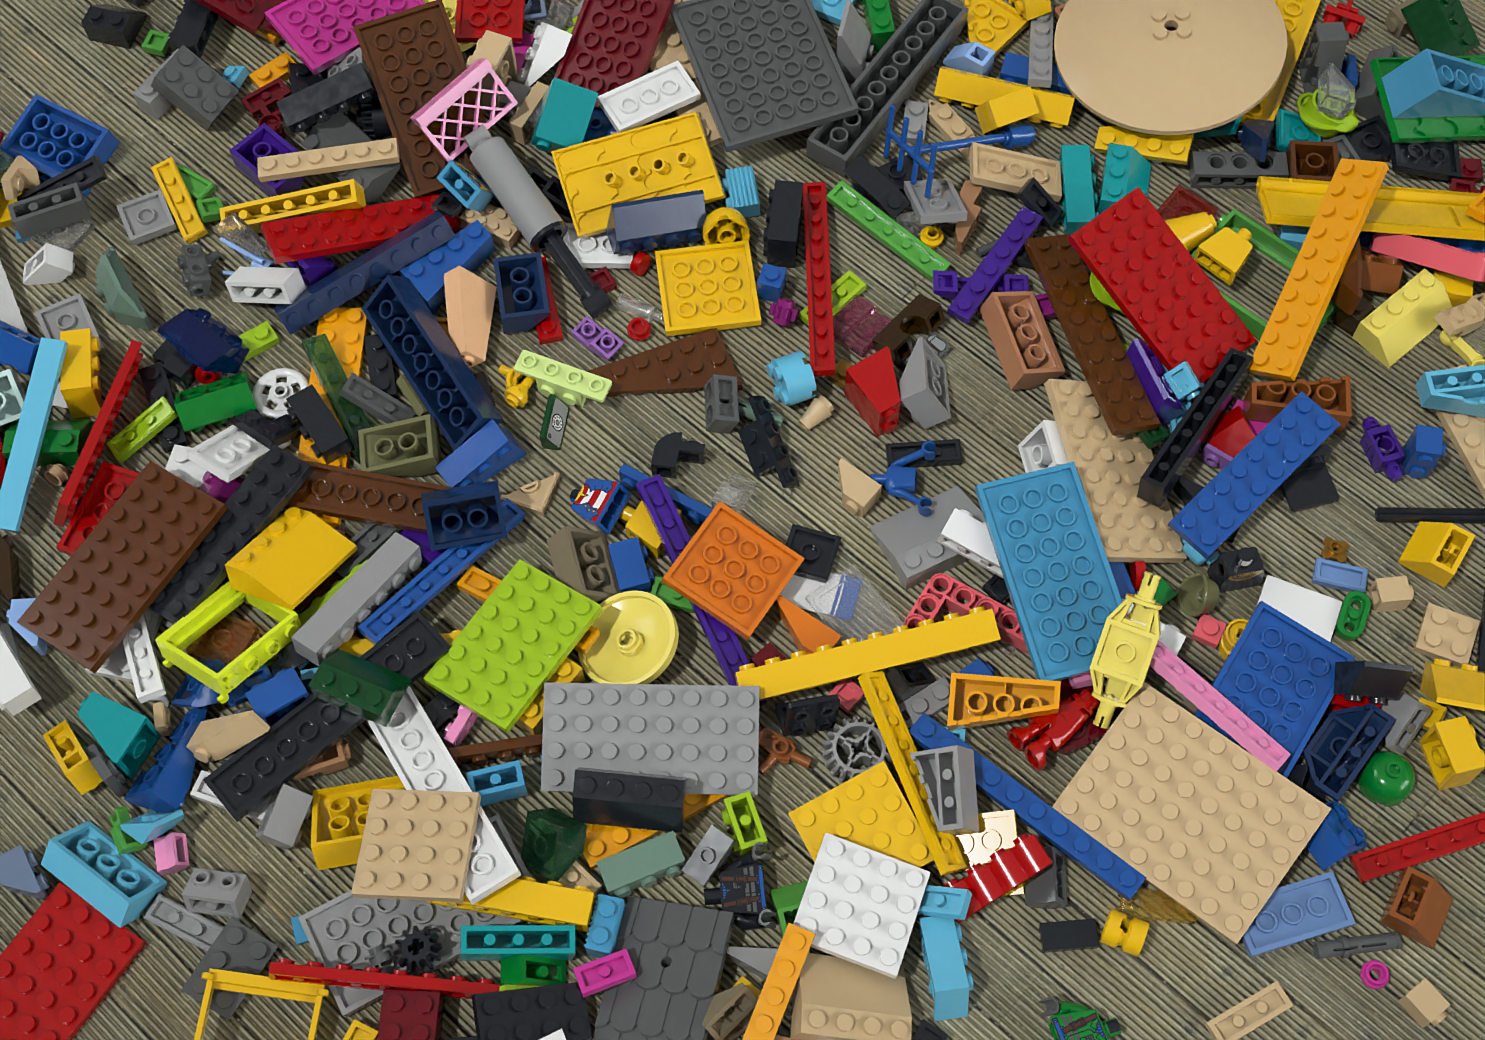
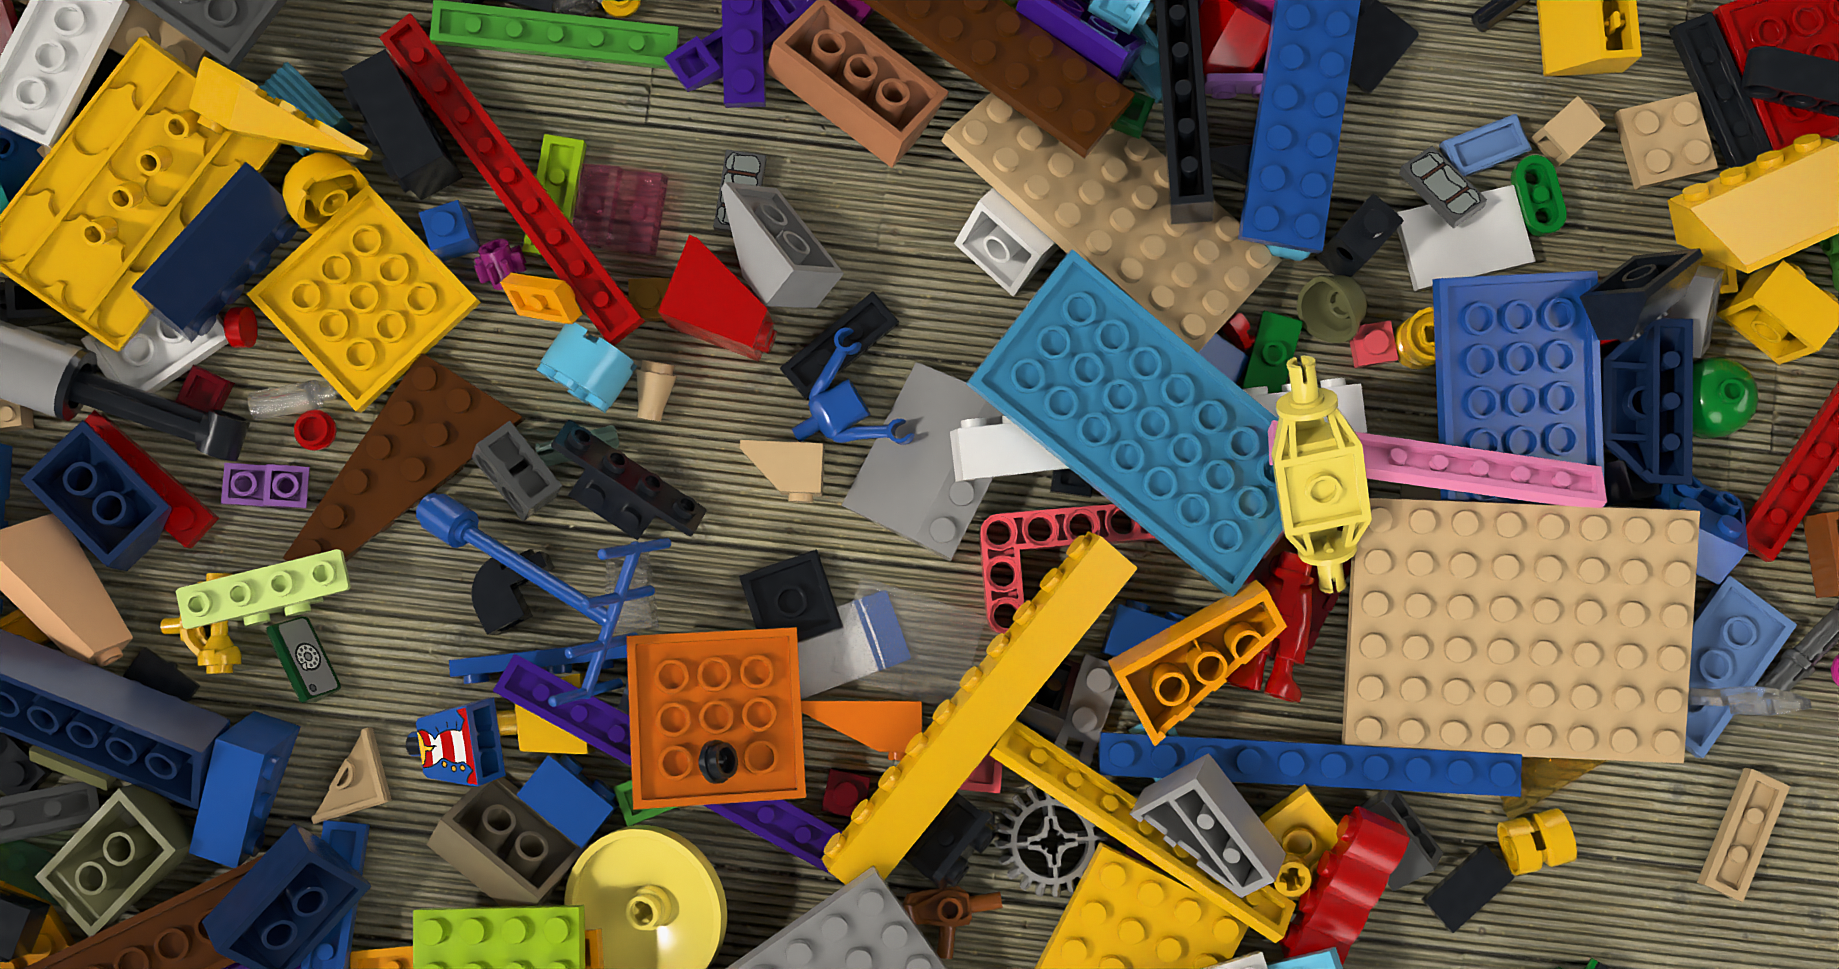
camera: 40 degrees left, 20 degrees up
(674, 412) = (459, 526): none -> blue piece
(717, 164) = (243, 108): none -> yellow wedge
(720, 583) = (717, 761): none -> black plate
(793, 333) = (541, 298): none -> light orange plate
(918, 316) = (691, 140): dark brown arch -> none
(965, 851) = (1299, 884): none -> yellow bush
(1300, 577) = (1442, 186): none -> tile
(1301, 929) = (1748, 699): none -> clear slope
(1330, 554) = (1456, 126): pearl gold plate -> none

